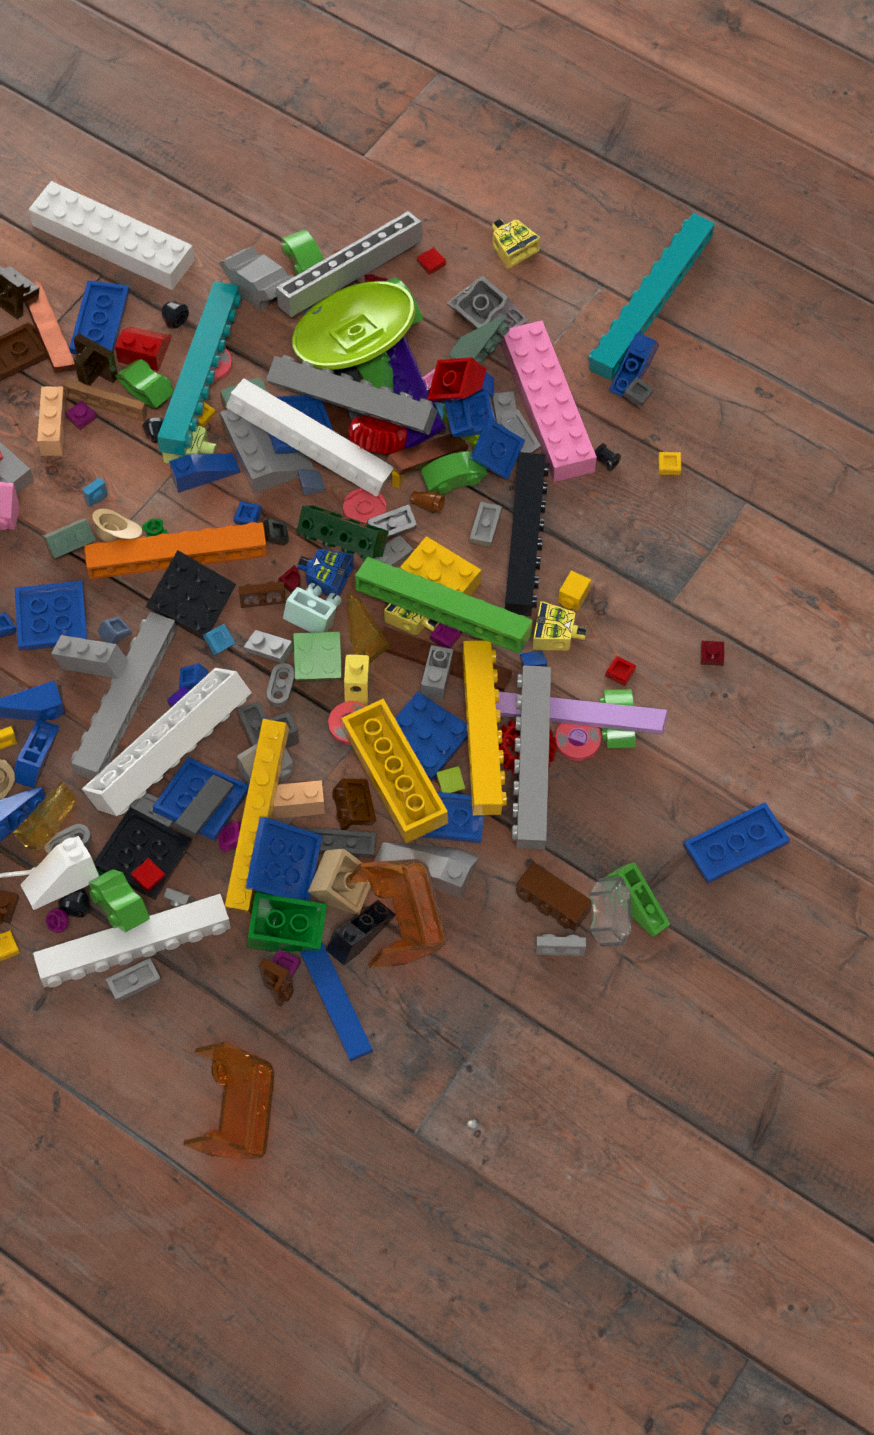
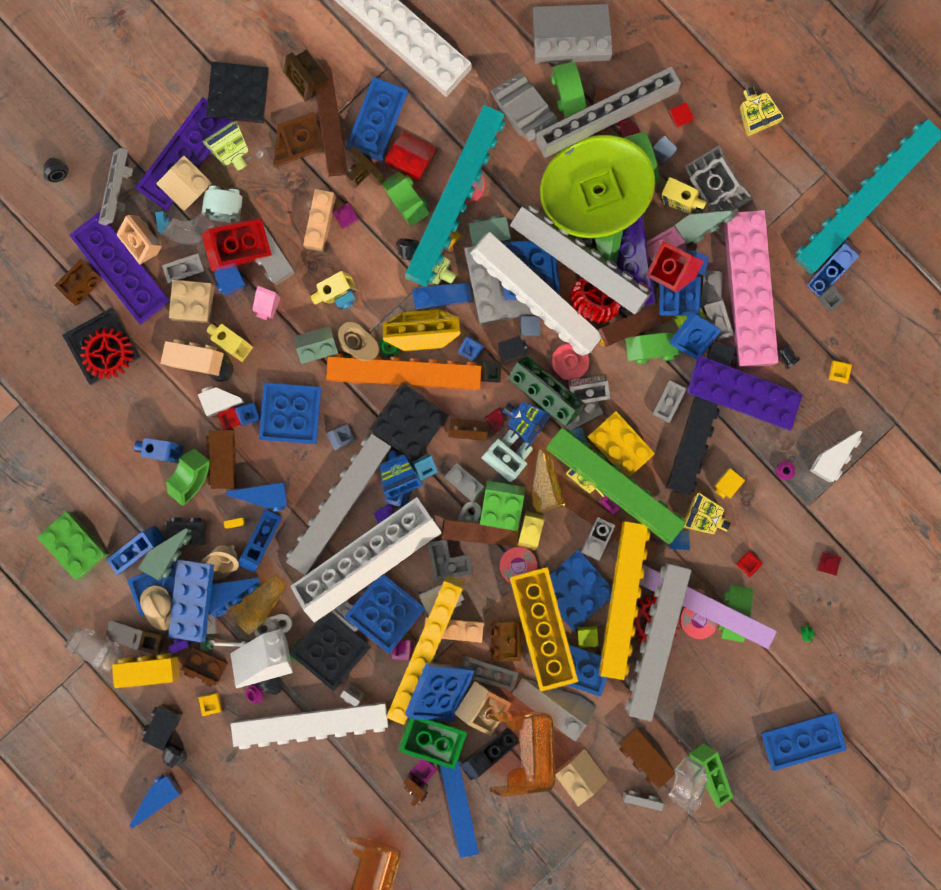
camera: 15 degrees right, 25 degrees up
(77, 477) = (339, 284): none -> light yellow torso
(89, 656) = (315, 467): light grey brick -> none
(105, 400) = (374, 210): medium nougat plate -> none
(118, 900) = (304, 696): bright green brick -> none
(133, 980) = (305, 757): light grey plate -> none
(148, 875) = (331, 674): red tile -> none
(174, 314) = (443, 128): black cone -> none
(189, 505) = (421, 329): none -> yellow wedge
(191, 649) = (398, 475): none -> blue torso
(204, 806) = (385, 625): dark grey tile -> none
(292, 497) = (512, 350): none -> black brick
(296, 208) = (572, 33): none -> light grey slope
(297, 691) = (478, 533): none -> copper tile
(422, 292) = (664, 149): none -> sand blue slope
(430, 501) = (626, 368): dark orange cone -> none
(448, 324) = (675, 196): none -> light yellow torso
(477, 936) = (580, 777): none -> tan slope
(567, 495) = (744, 393): none -> dark purple plate
(635, 573) = (779, 470): none -> magenta plate
(684, 544) = (830, 461): none -> white slope
(708, 726) = (807, 633): none -> green plate

